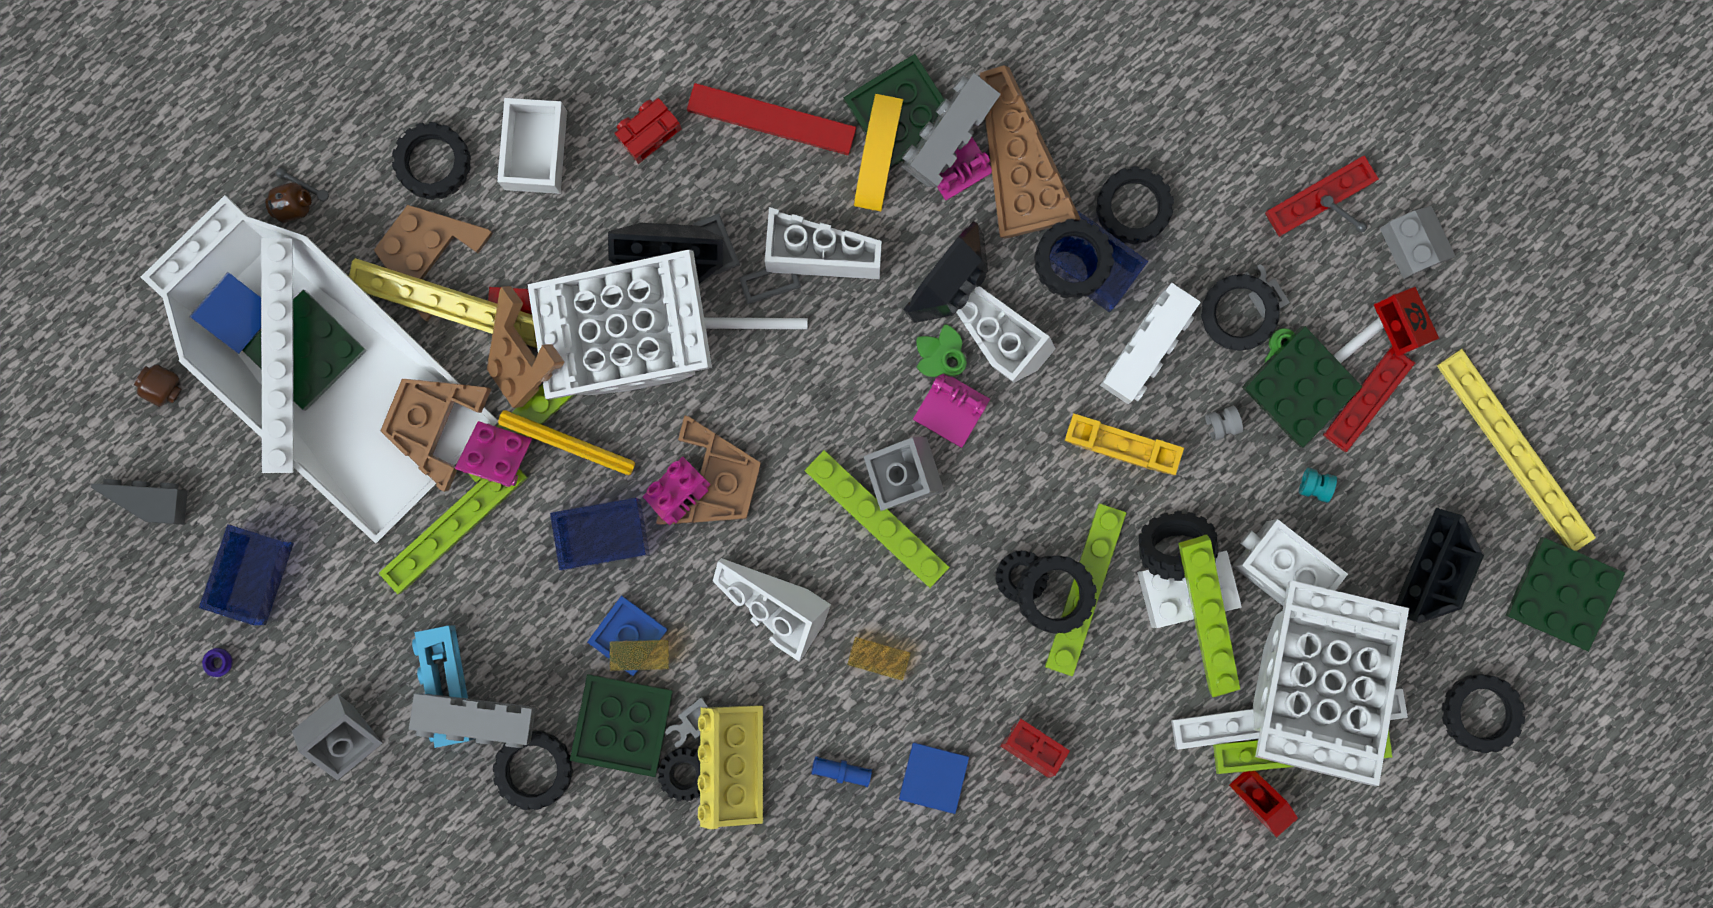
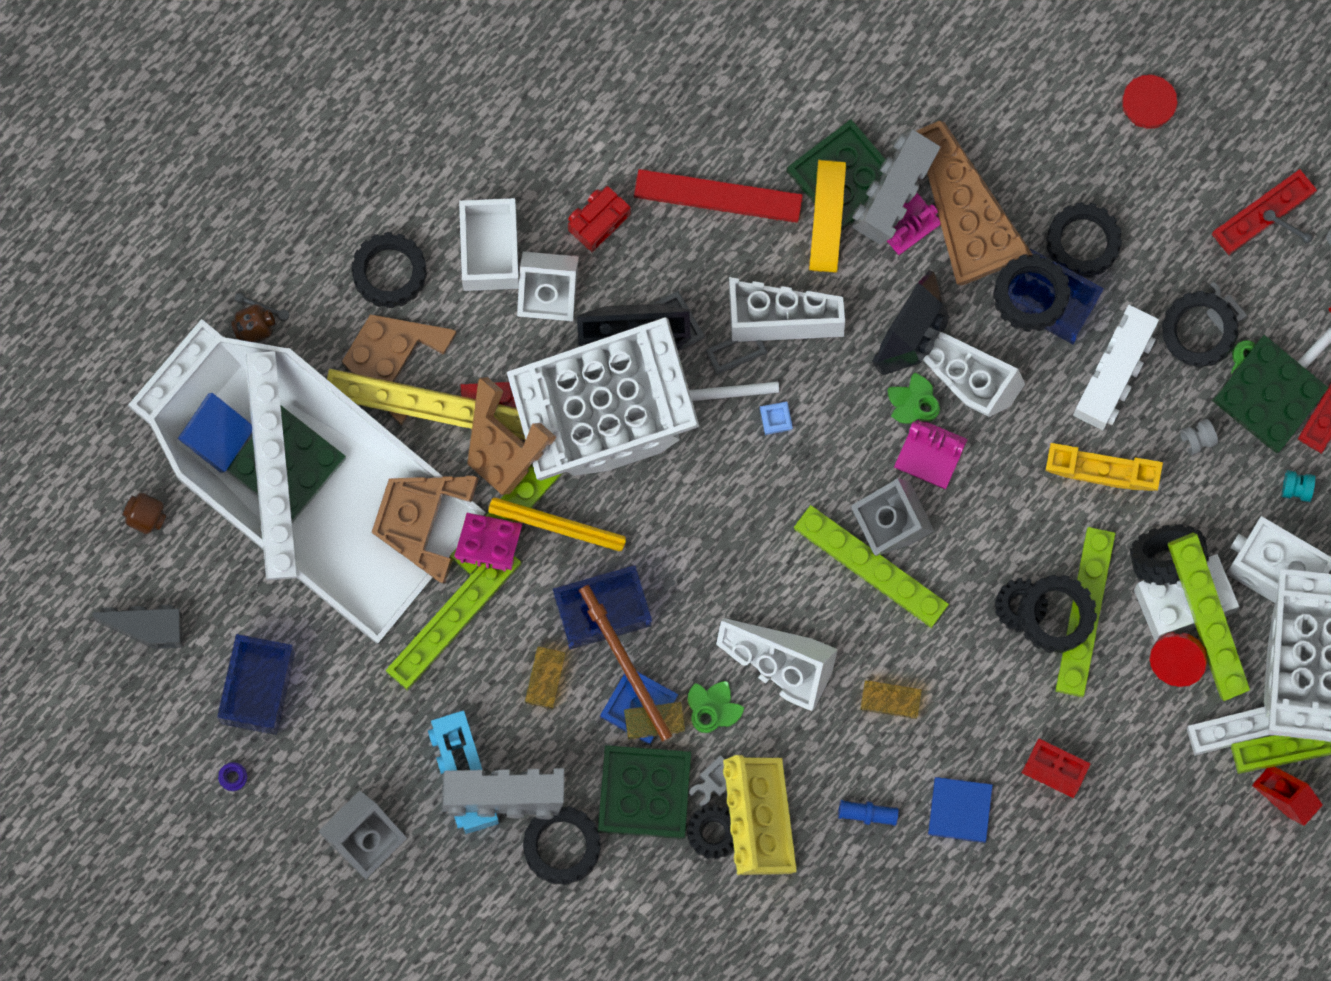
camera: 10 degrees left, 10 degrees down
(537, 597) = (545, 677): none -> clear yellow plate
(587, 194) = (547, 286): none -> white slope
(591, 545) = (598, 613): none -> dark orange bar
(673, 488) = (668, 555): dark pink hinge -> none
(704, 642) = (714, 703): none -> bright green plate
(728, 471) = (716, 546): medium nougat wing -> none
(801, 355) = (776, 418): none -> light blue tile
(1173, 652) = (1178, 659): none -> red tile
(1220, 67) = (1149, 101): none -> red tile

